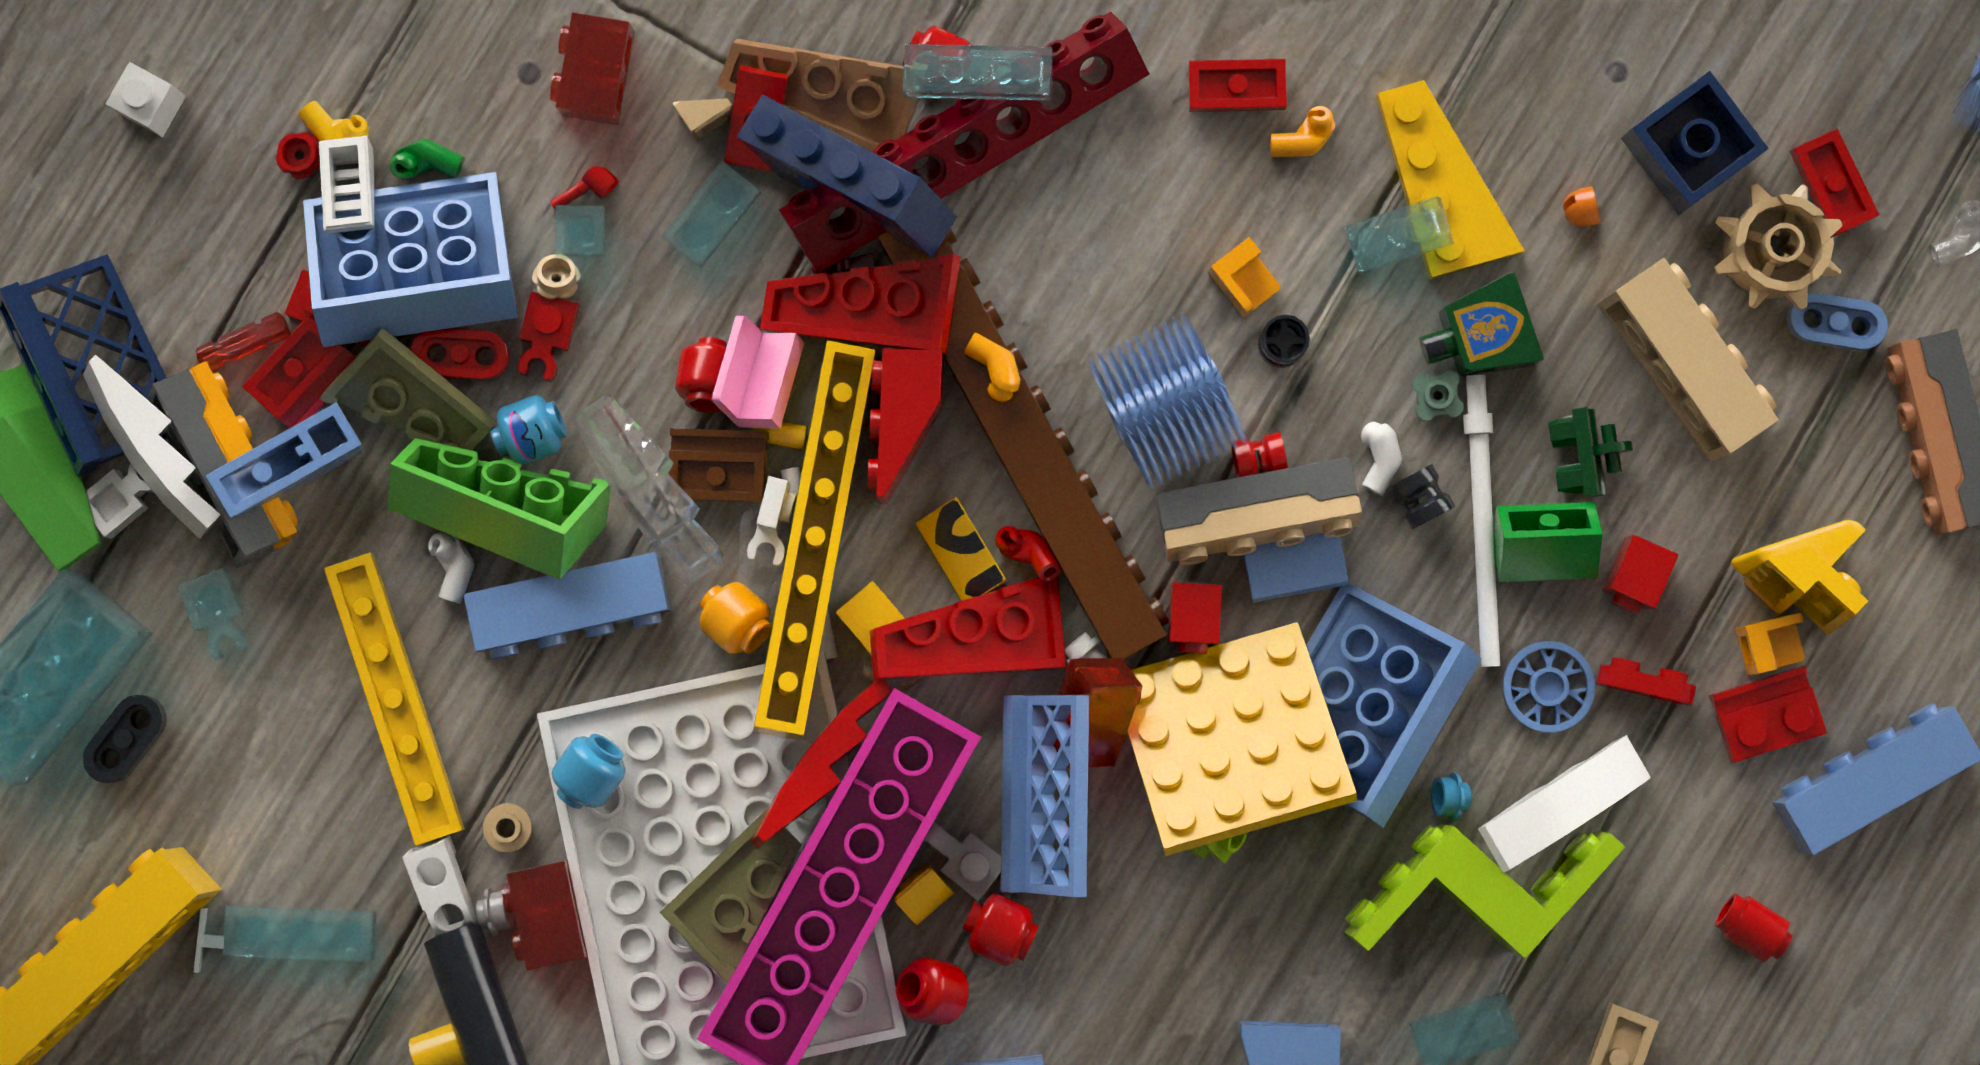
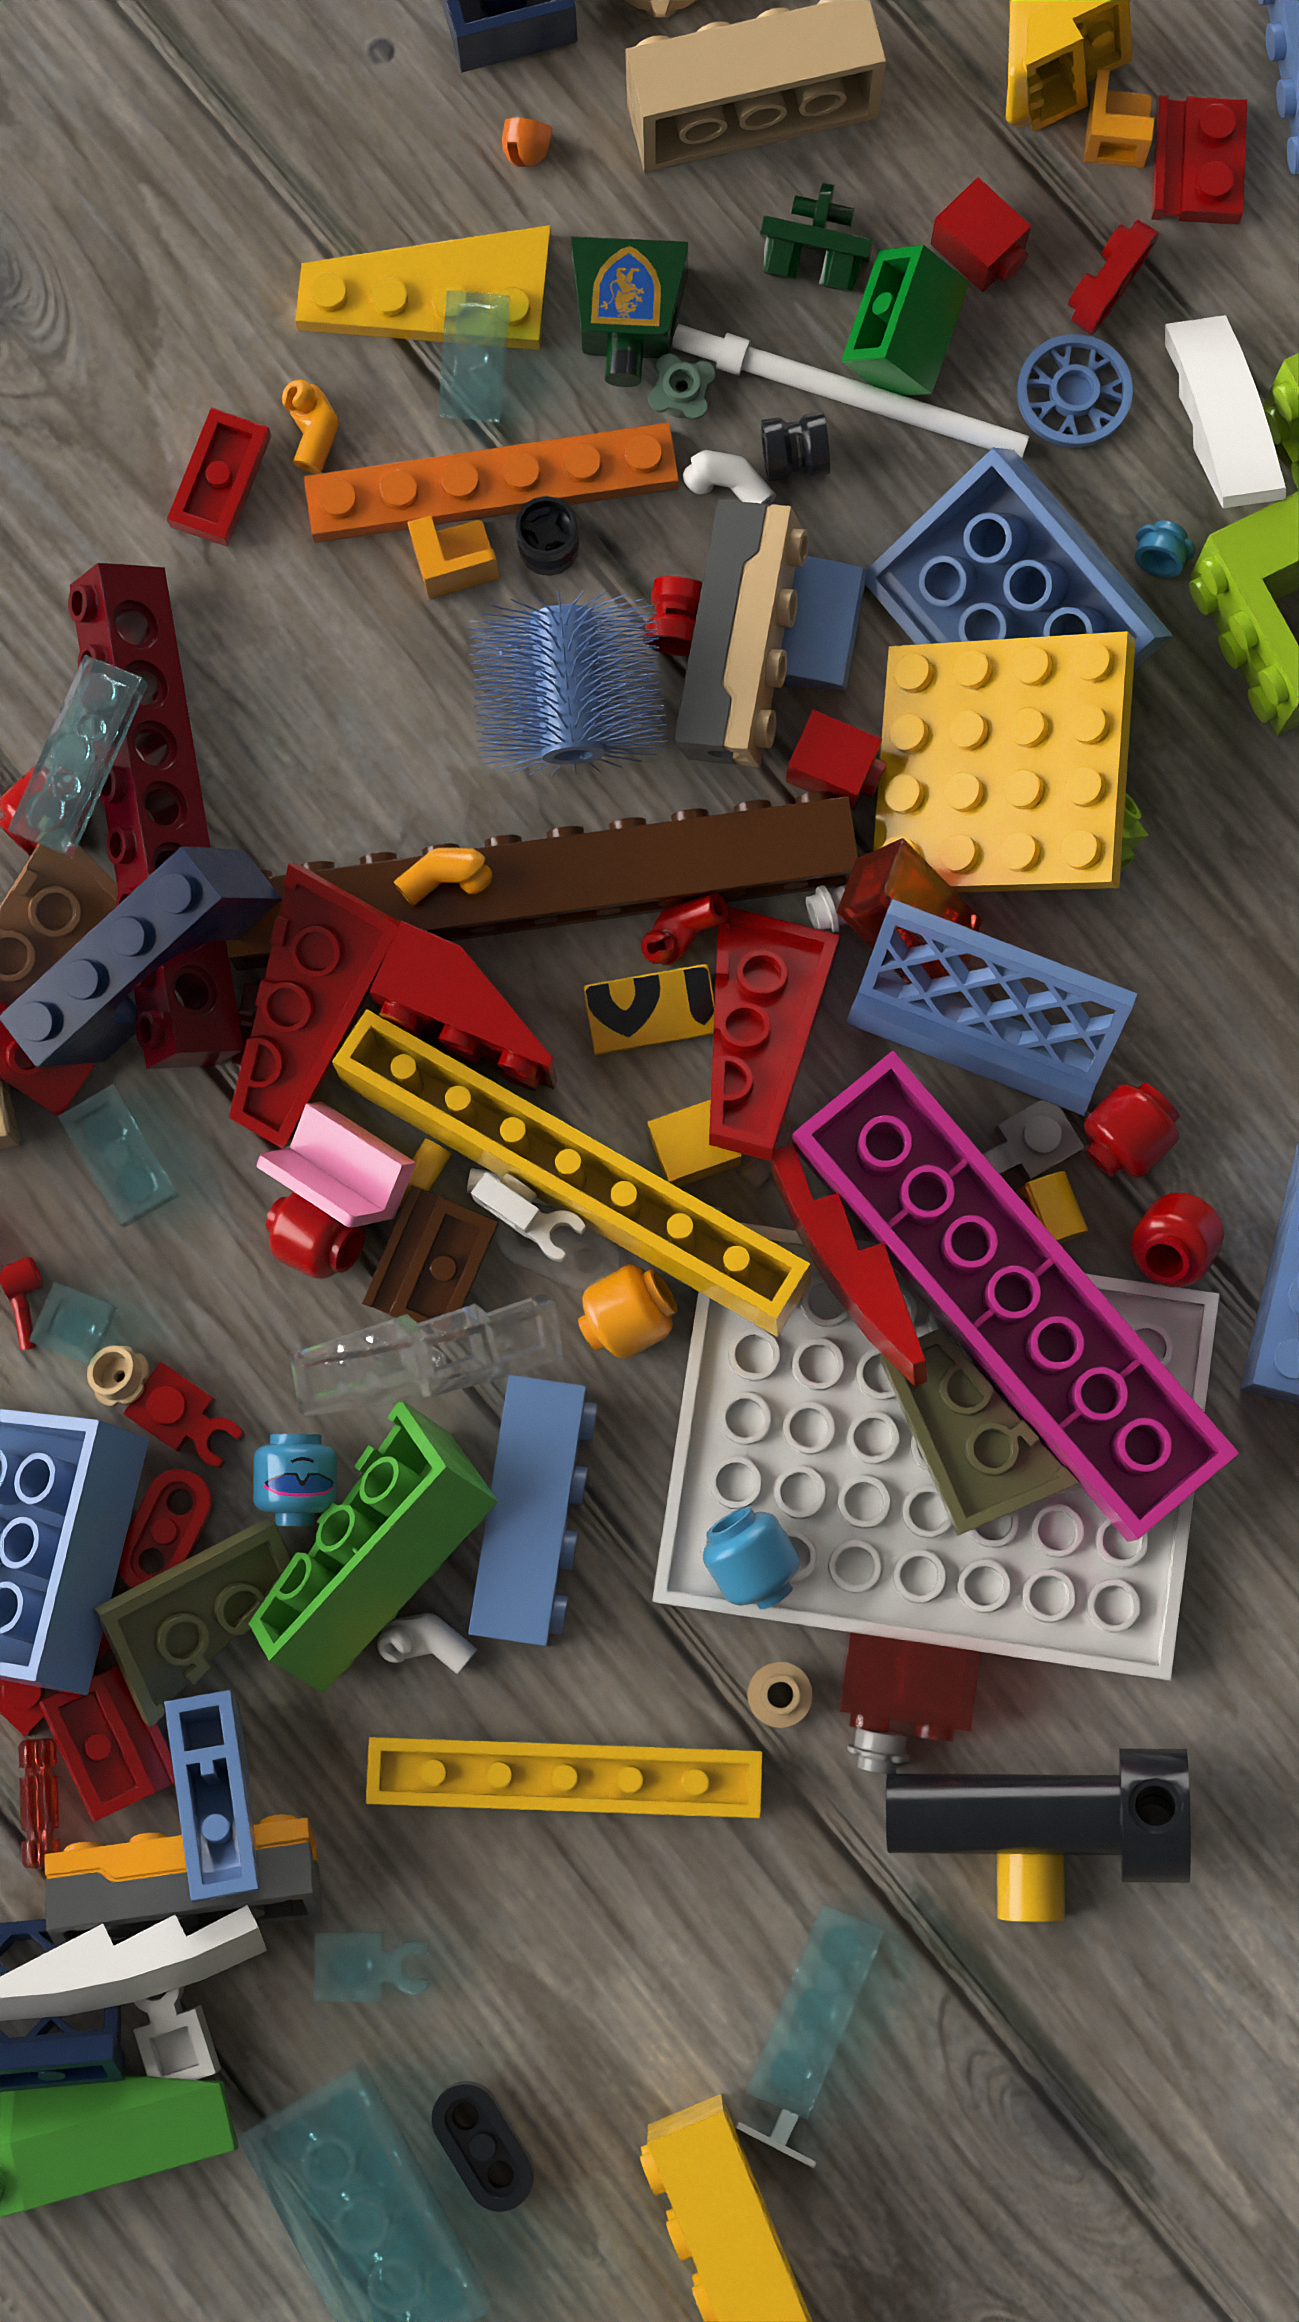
camera: 70 degrees left, 5 degrees down
(440, 885) = (821, 1806): white leg -> none
(1311, 284) = (491, 481): none -> orange plate

